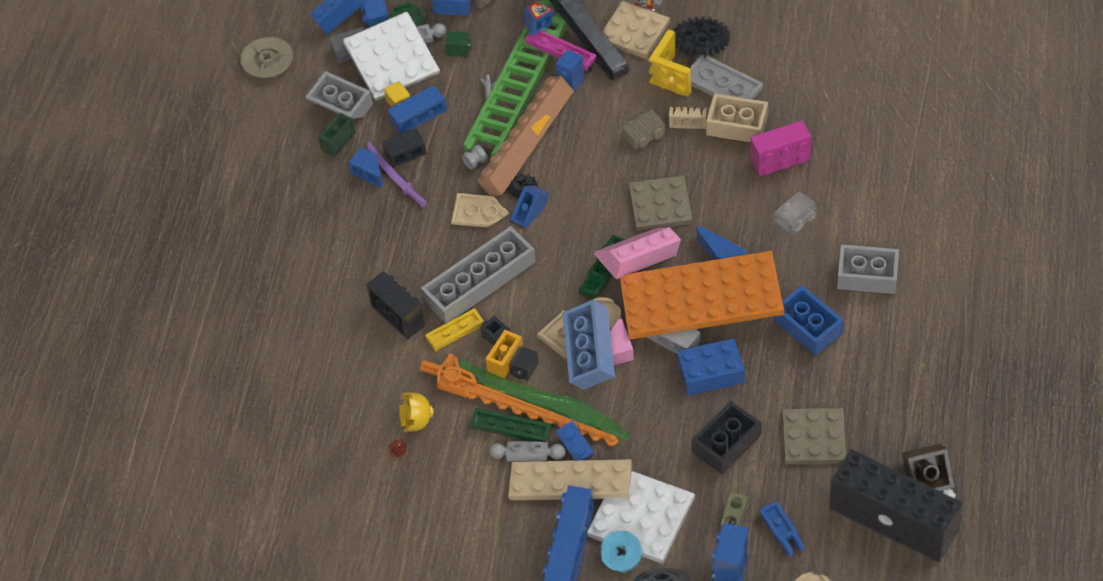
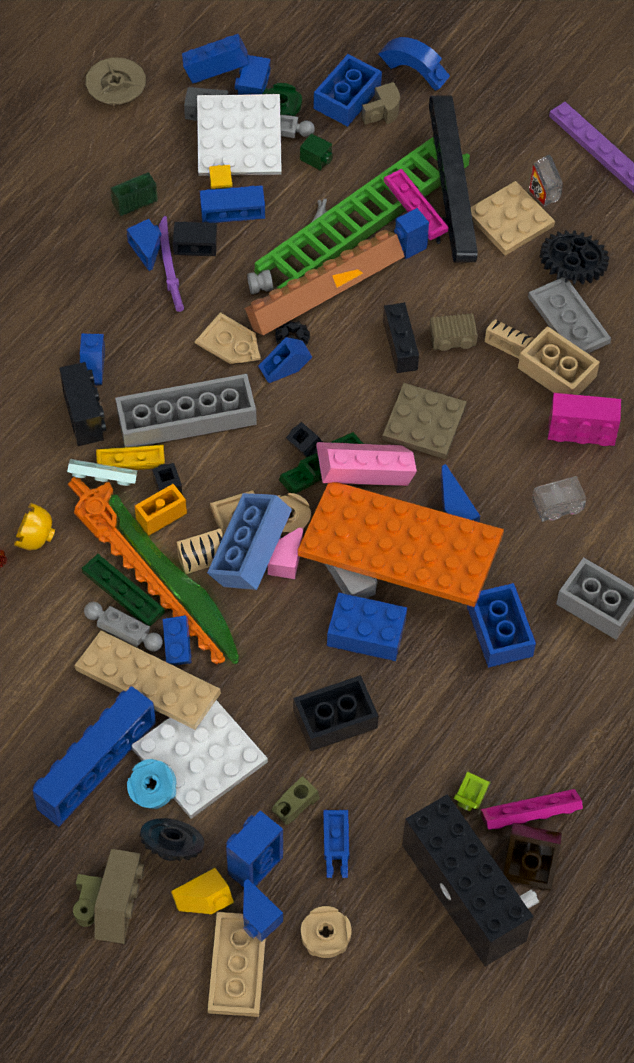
camera: 20 degrees right, 5 degrees up
(340, 96) = (160, 155): light grey slope -> none
(377, 262) = (93, 353): none -> blue slope
(441, 348) = (102, 472): none -> light aqua plate
(524, 363) = (176, 528): black brick -> none
(537, 17) = (409, 160): blue slope -> none
(552, 371) = (198, 551): none -> tan brick
(576, 252) = (303, 439): none -> black brick
(607, 151) = (400, 337): none -> black brick
(667, 73) = (510, 273): yellow bracket -> none
(814, 436) = (433, 756): dark tan plate -> none
(858, 442) = (471, 791): none -> lime bracket
(908, 437) = (531, 809): none -> dark pink plate

